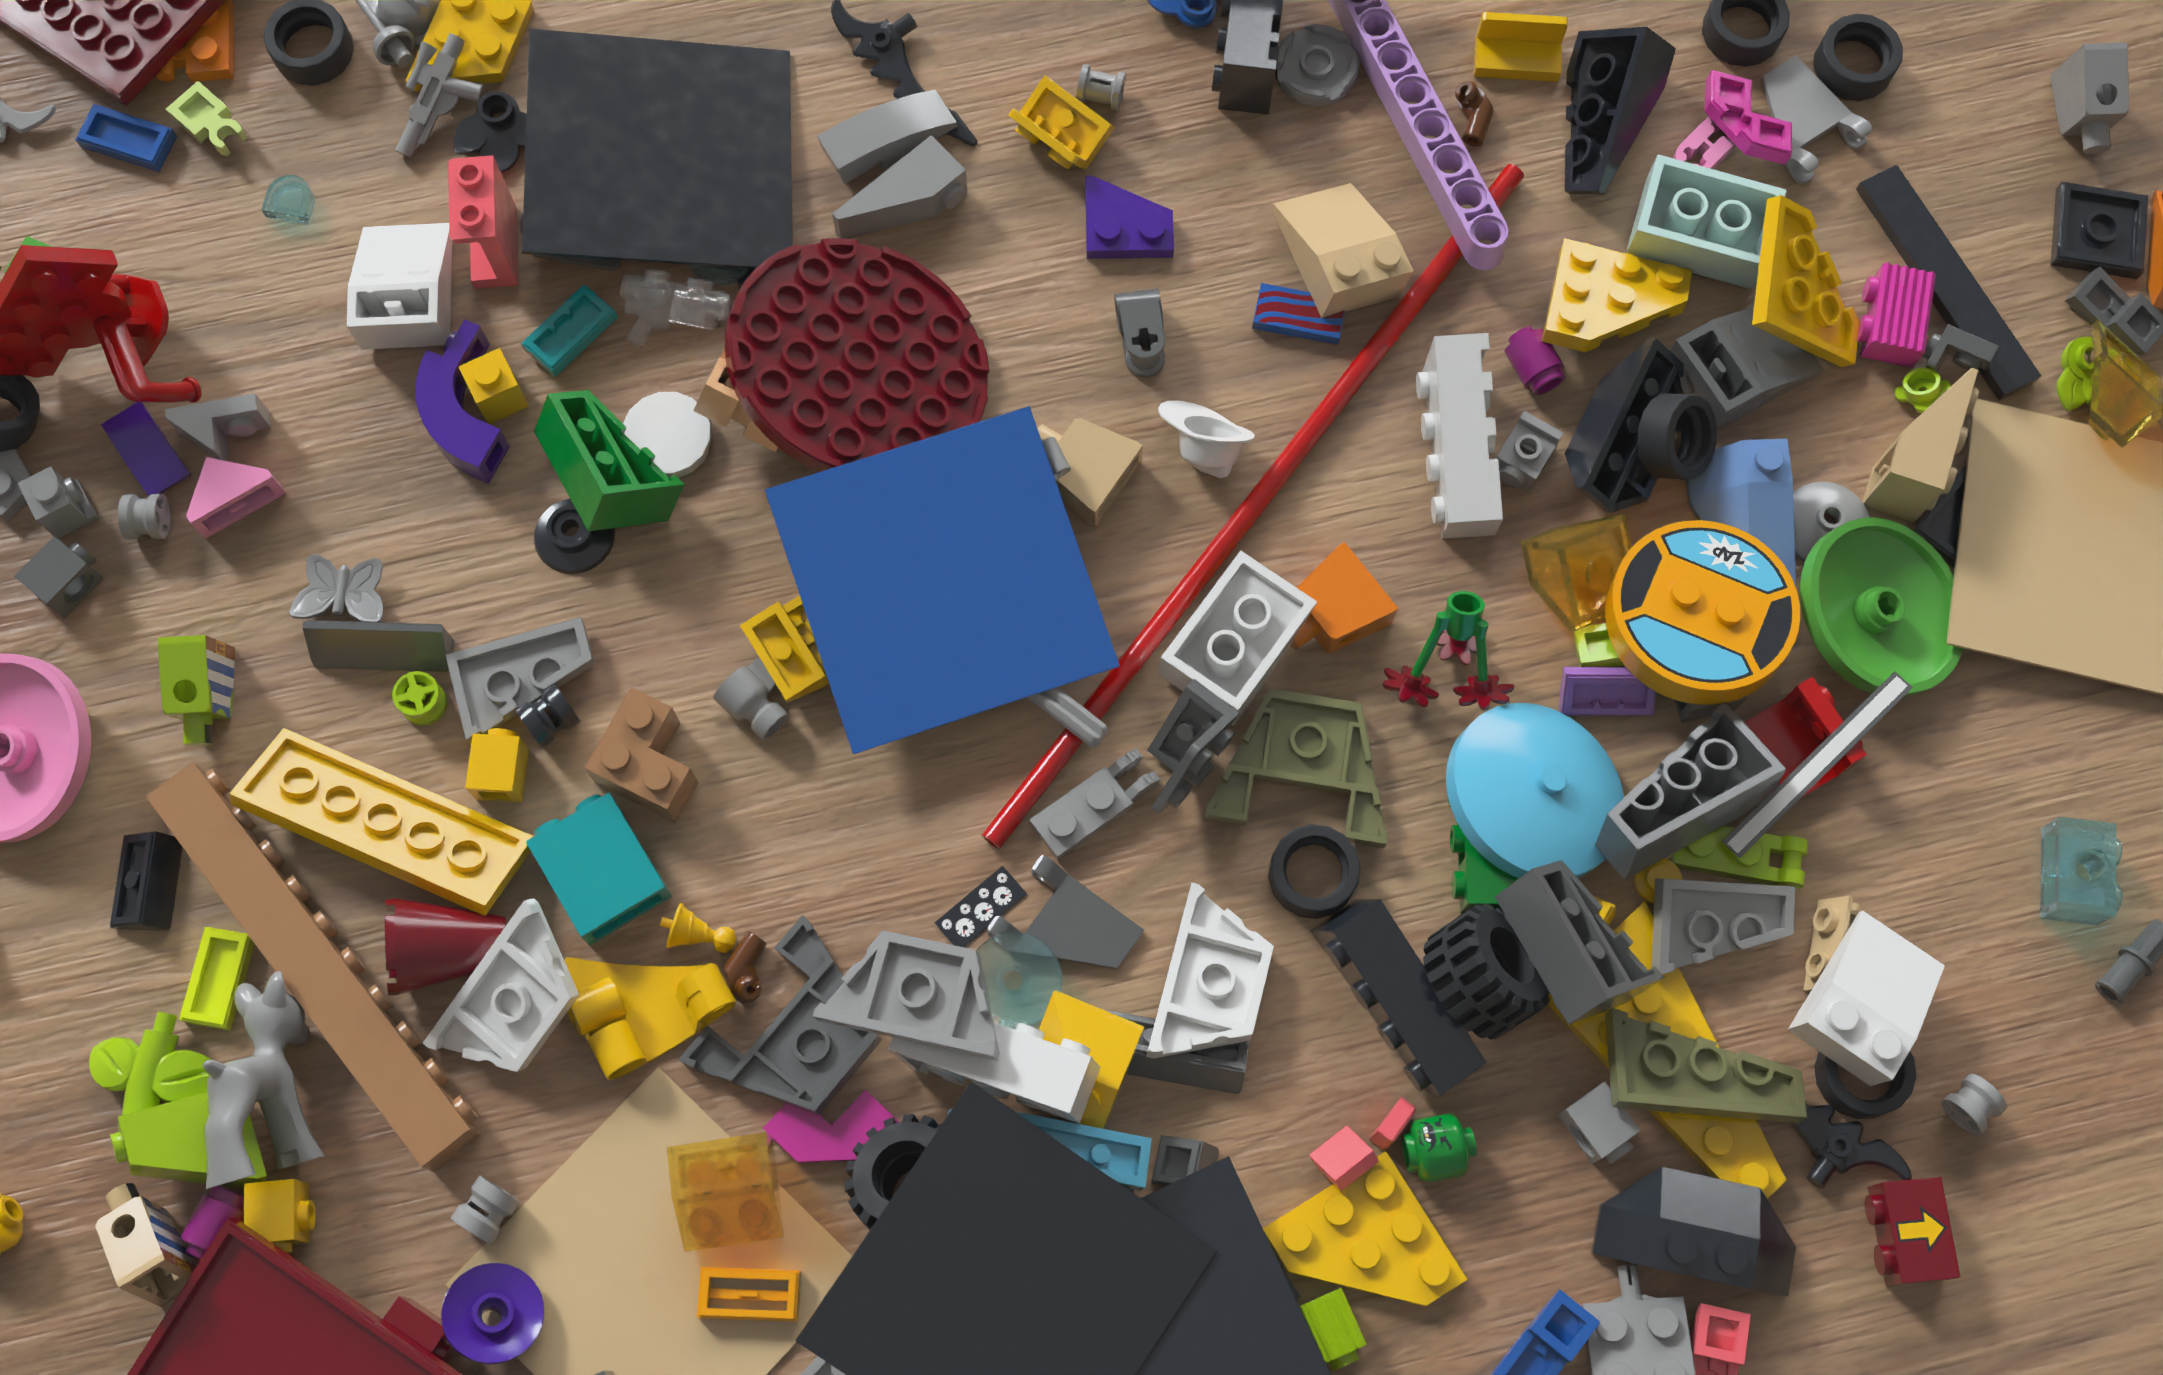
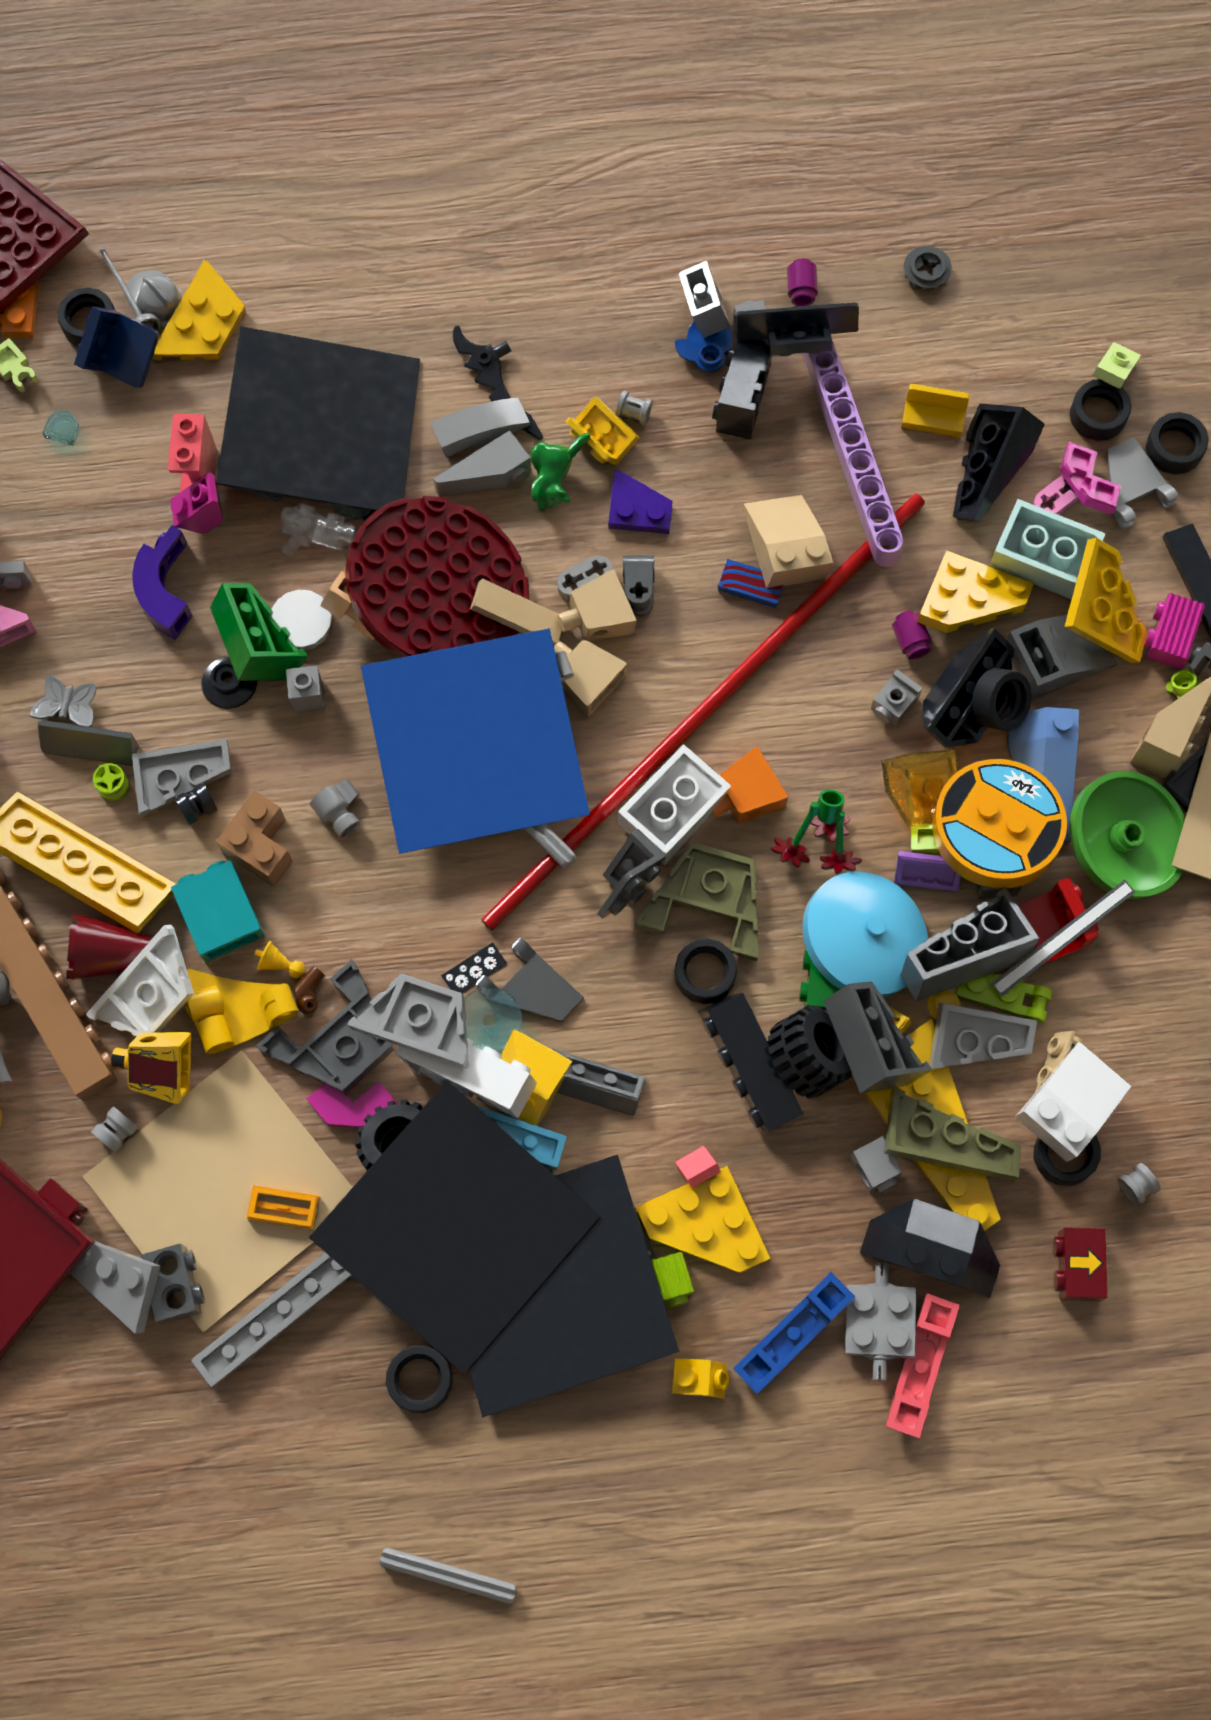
camera: 10 degrees right, 0 degrees up
(355, 75) = (117, 346): none -> dark blue bracket
(401, 287) = (131, 497): white slope -> none
(438, 92) = (172, 364): light grey piece -> none
(491, 135) = (207, 399): black plate -> none
(493, 386) = (186, 573): yellow brick -> none
(496, 1289) = (116, 1183): dark purple dish -> none
(497, 766) = (157, 834): yellow brick -> none
(499, 288) = (198, 506): none -> dark pink slope
(537, 1106) = (157, 1064): none -> yellow torso
(569, 330) = (243, 540): teal plate -> none
(686, 532) = (305, 688): none -> light grey brick
(725, 1191) = (276, 1136): clear yellow slope -> none
(787, 648) = (363, 776): yellow slope -> none
(972, 386) = (514, 610): none -> tan tile
(997, 180) = (552, 466): none -> green animal
(1067, 339) = (582, 574): none -> light grey beam
(1091, 806) = (559, 908): light grey hinge -> none
(1092, 373) = (599, 609): none -> tan torso
(1181, 1158) = (587, 1152): dark grey slope -> none
(1205, 436) = (672, 662): white piece -> none
(1211, 981) = (623, 1036): white wing -> none
(1316, 65) = (789, 408): light grey tile -> none
(1393, 1123) = (734, 1148): coral tile -> none
(1438, 1147) = (762, 1167): green head -> none
(1460, 437) = (850, 682): white wedge -> none
(1477, 111) = (898, 452): reddish brown arm -> none
(1809, 508) = (1097, 754): light grey dish -> none
(1840, 1148) = (1042, 1202): black piece -> none

